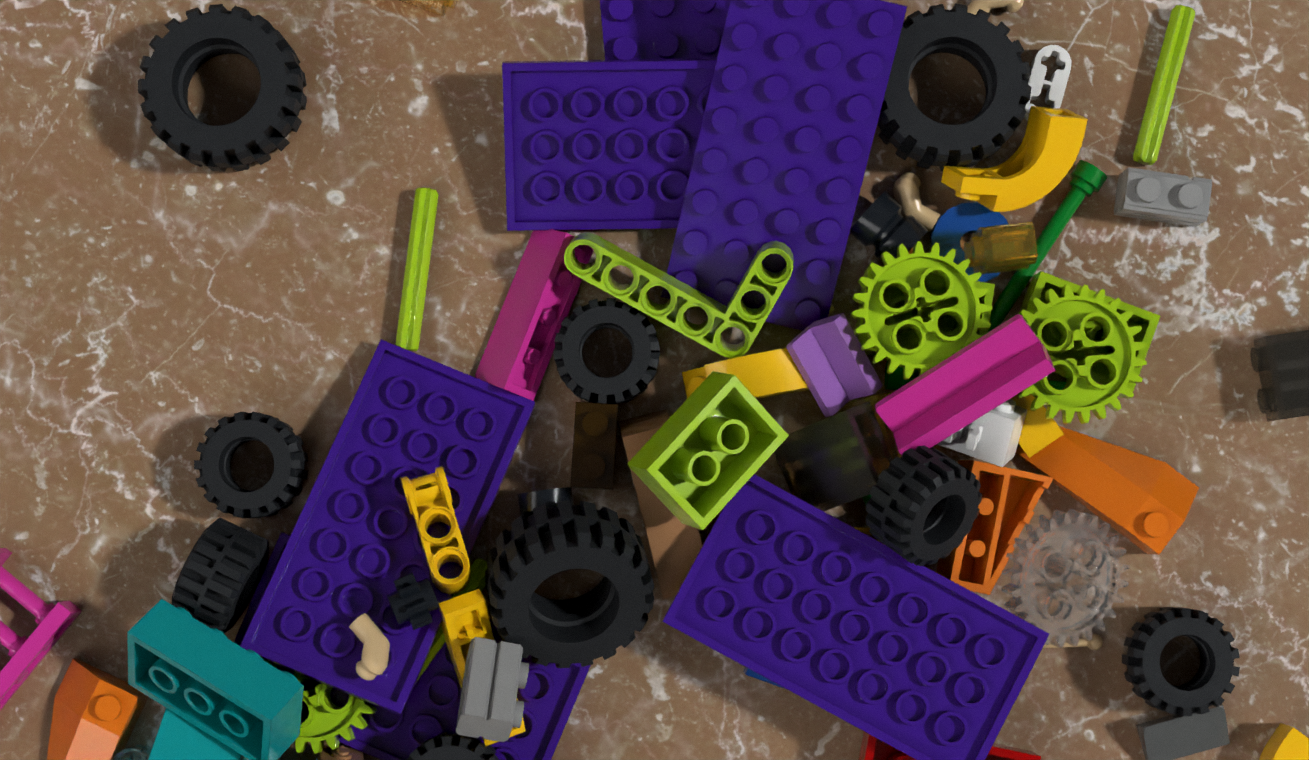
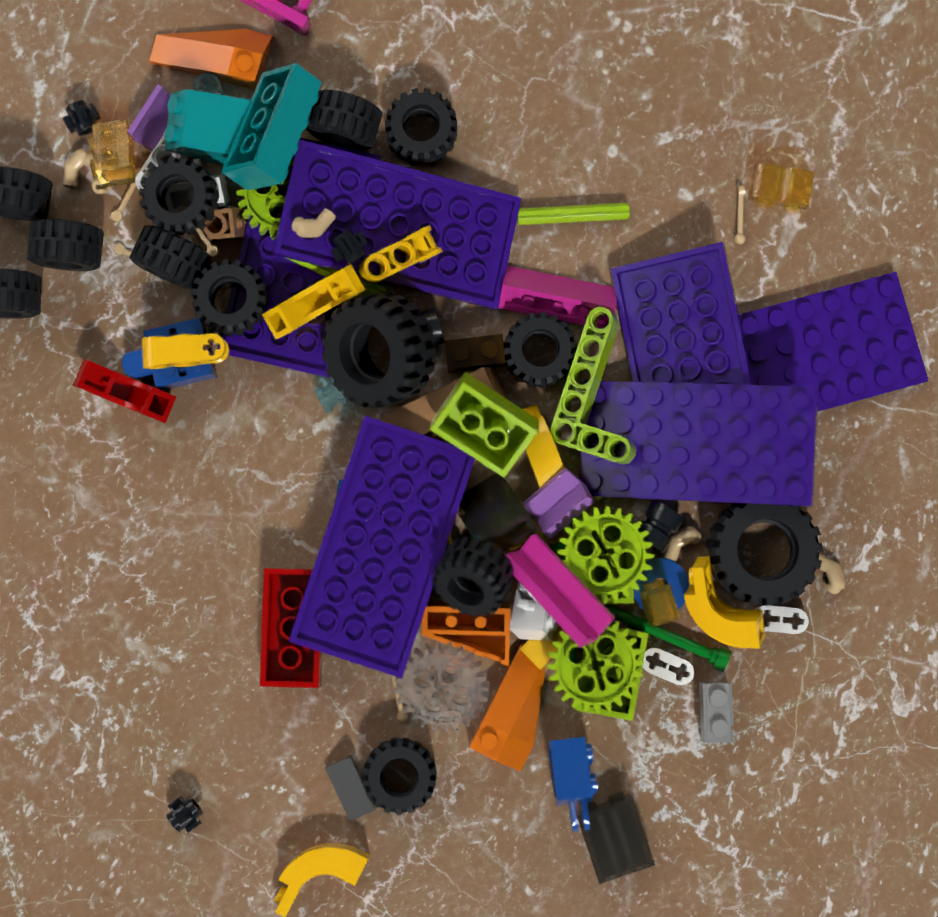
camera: 75 degrees right, 0 degrees up
(190, 46) = (677, 25): black tyre -> none
(490, 690) = (299, 308): light grey brick -> none
(495, 39) = (740, 237): none -> tan hinge
(620, 667) = (329, 396): none -> clear light blue wheel
(1093, 259) = (669, 659): none -> white beam
(1164, 85) = (795, 701): lime axle -> none
(1227, 415) = (572, 777): none -> blue brick

